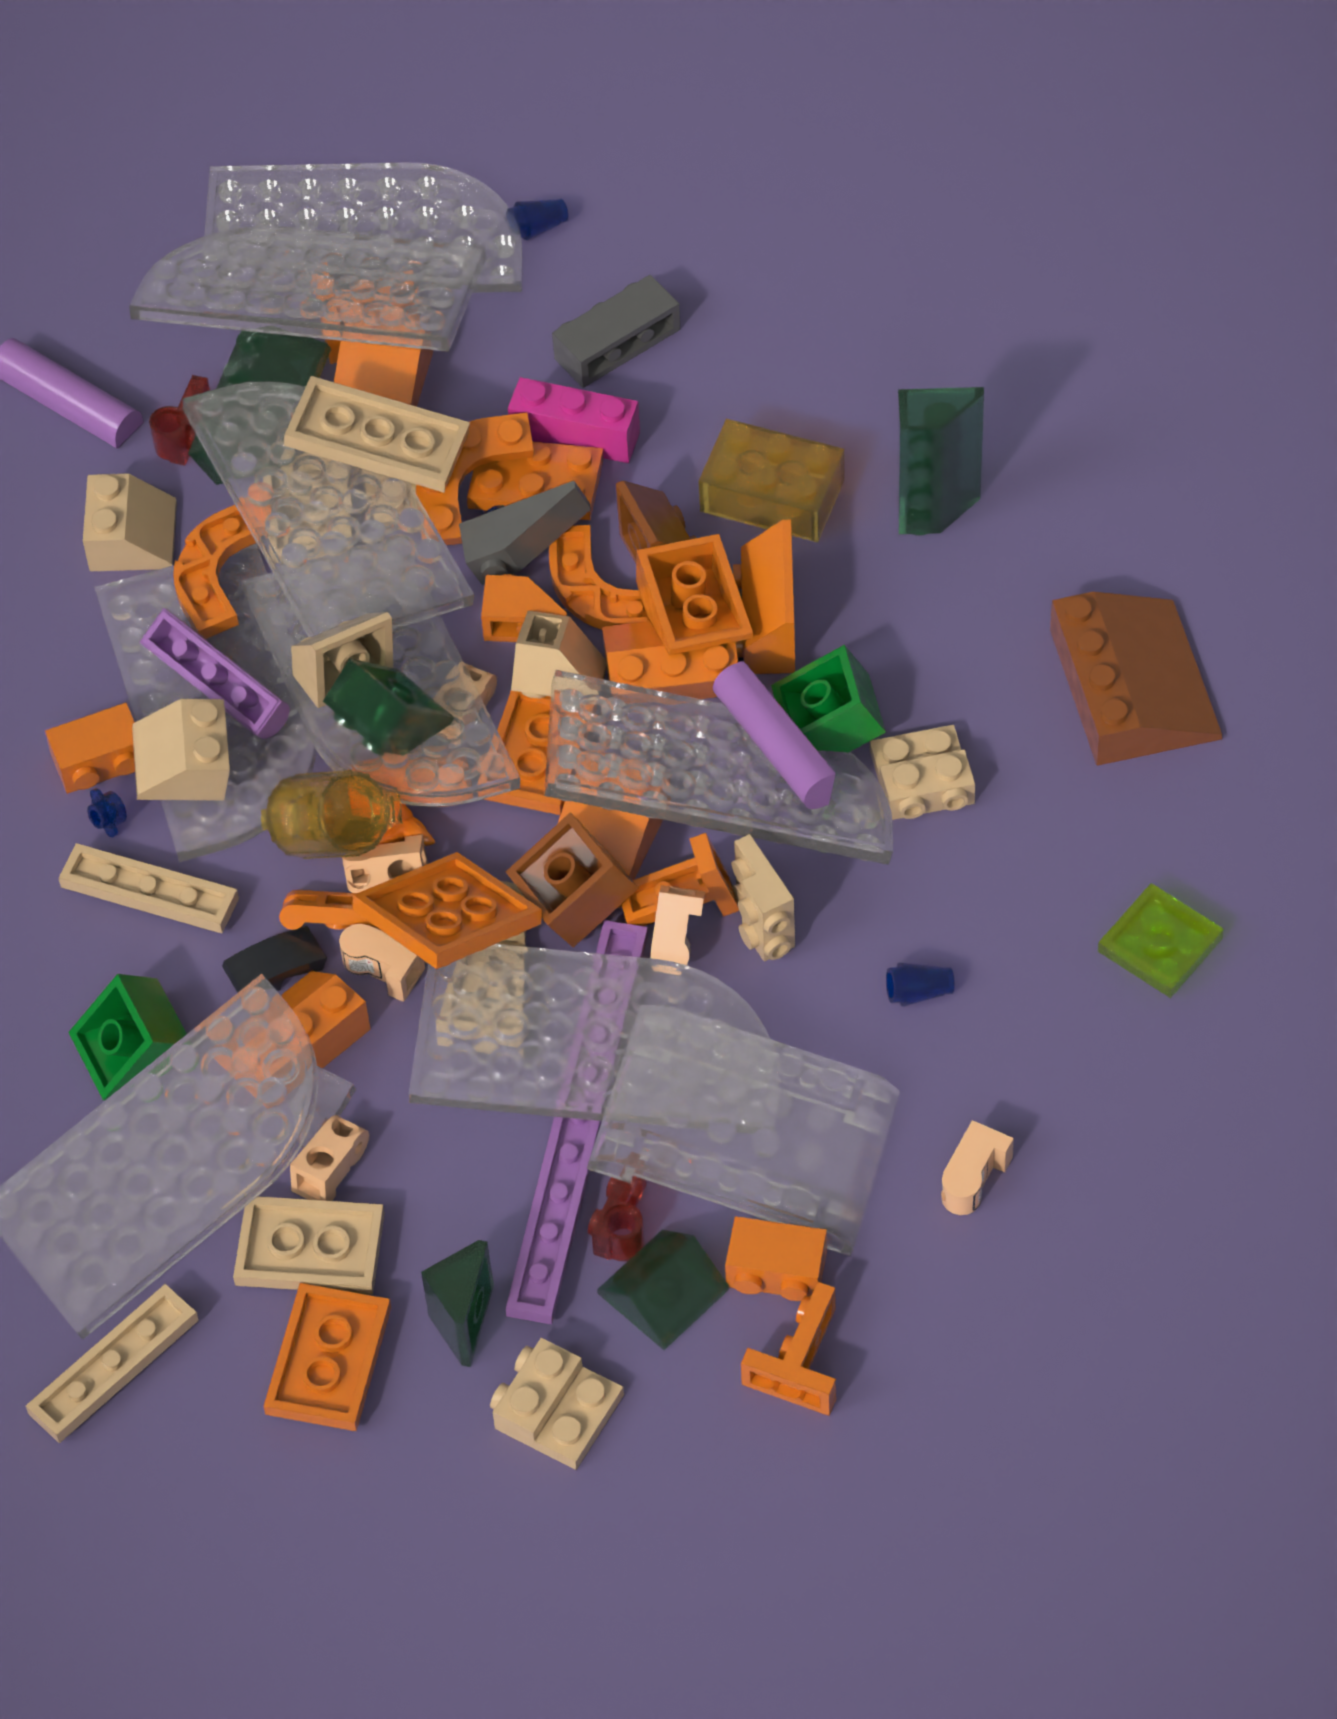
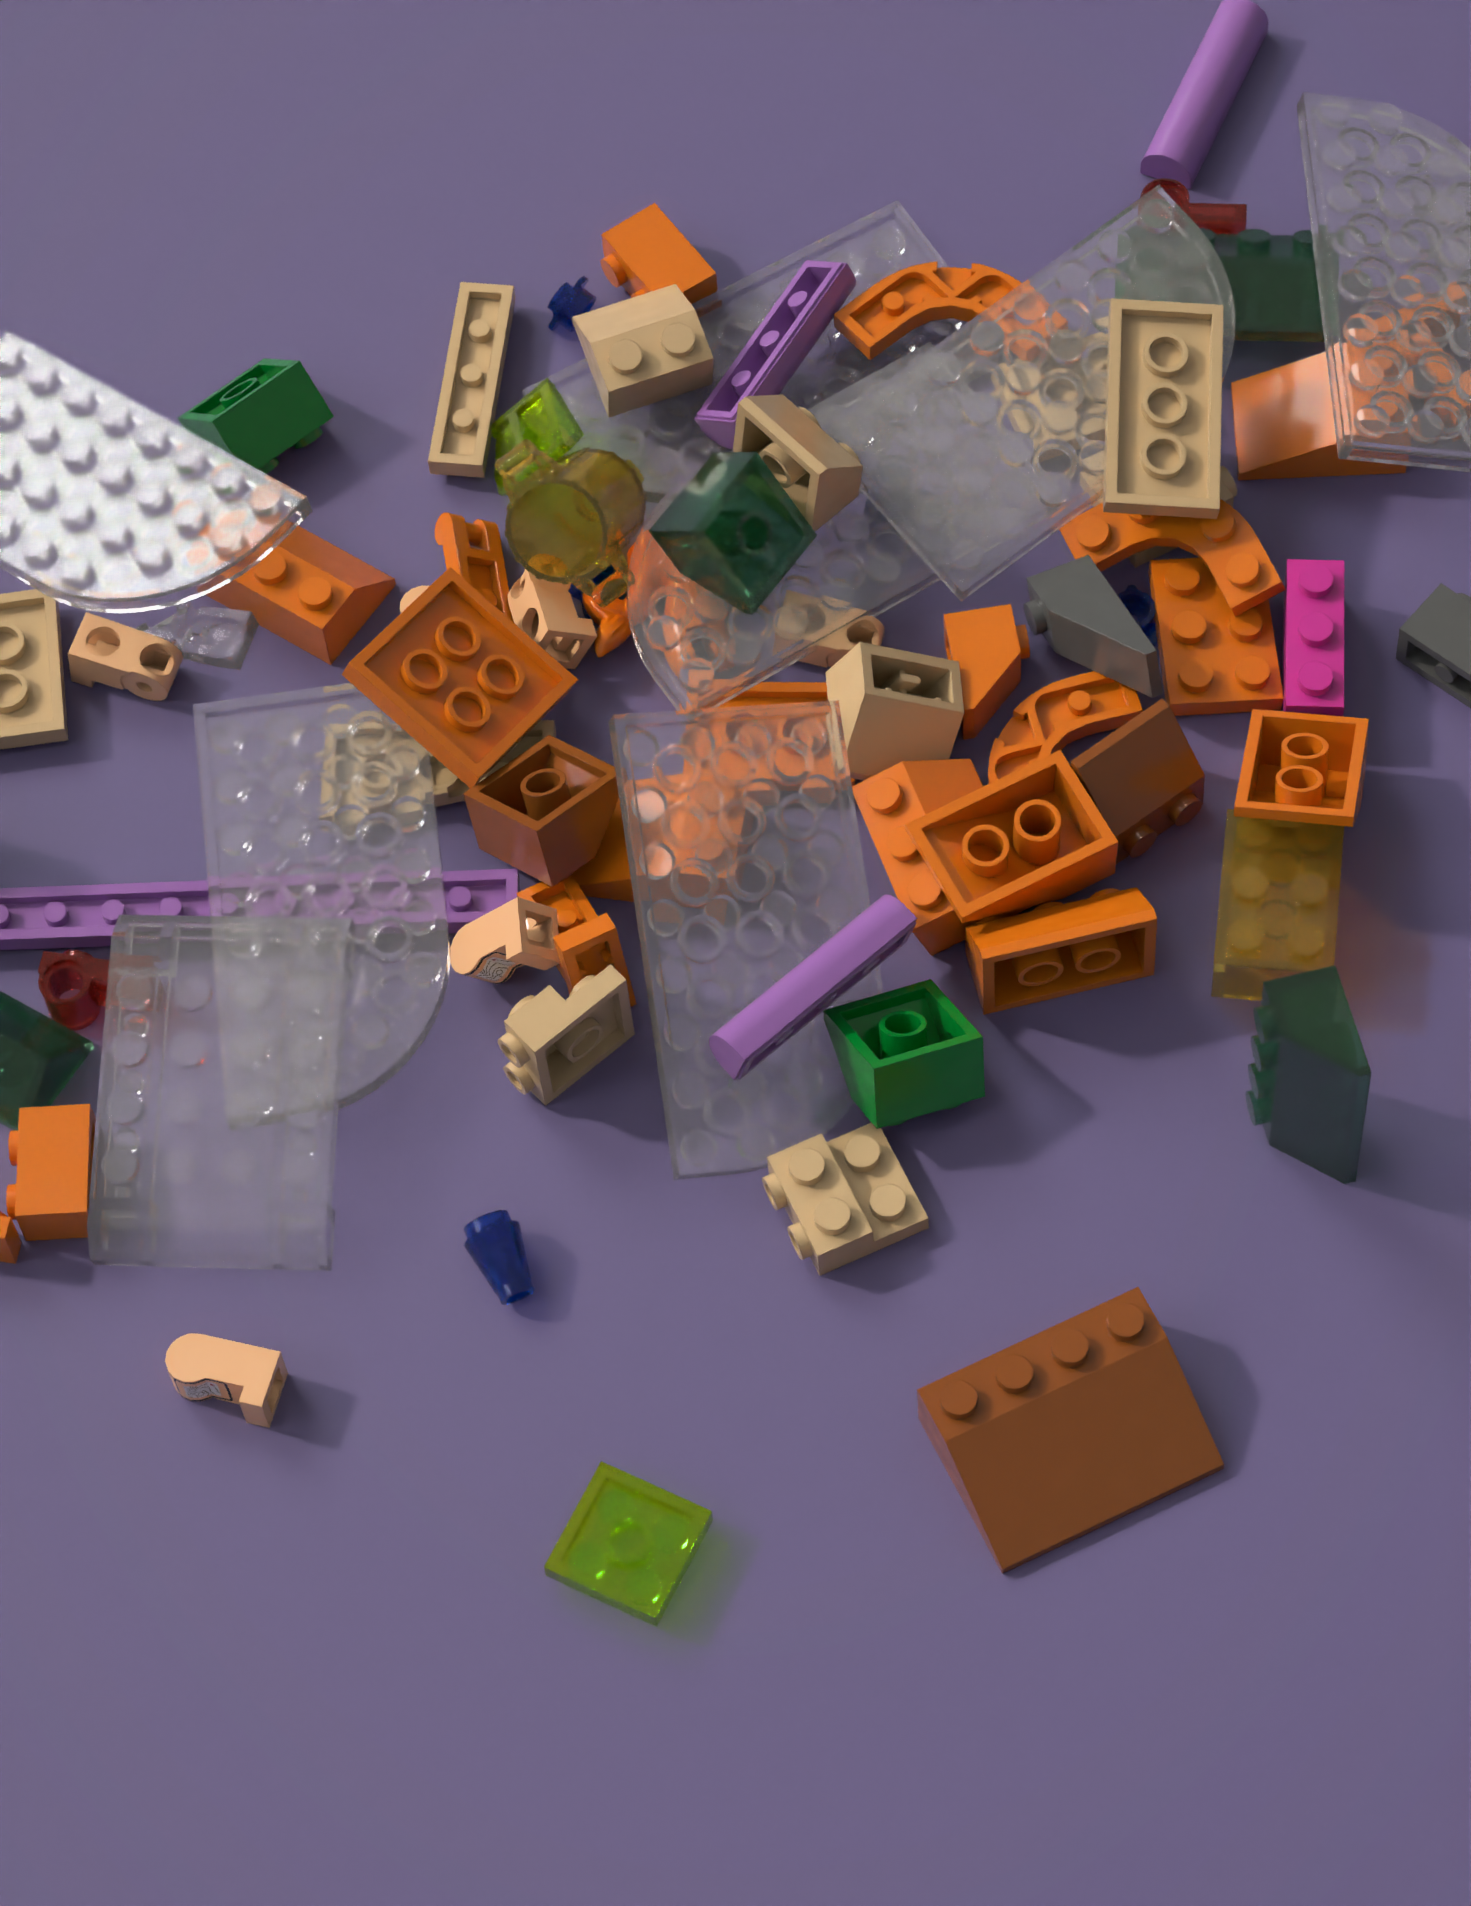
camera: 80 degrees right, 5 degrees up
(128, 524) = (1007, 206): tan slope -> none
(234, 849) = (542, 420): none -> clear neon green slope
(276, 958) = (393, 533): black slope -> none
(685, 432) = (1303, 768): none -> orange slope

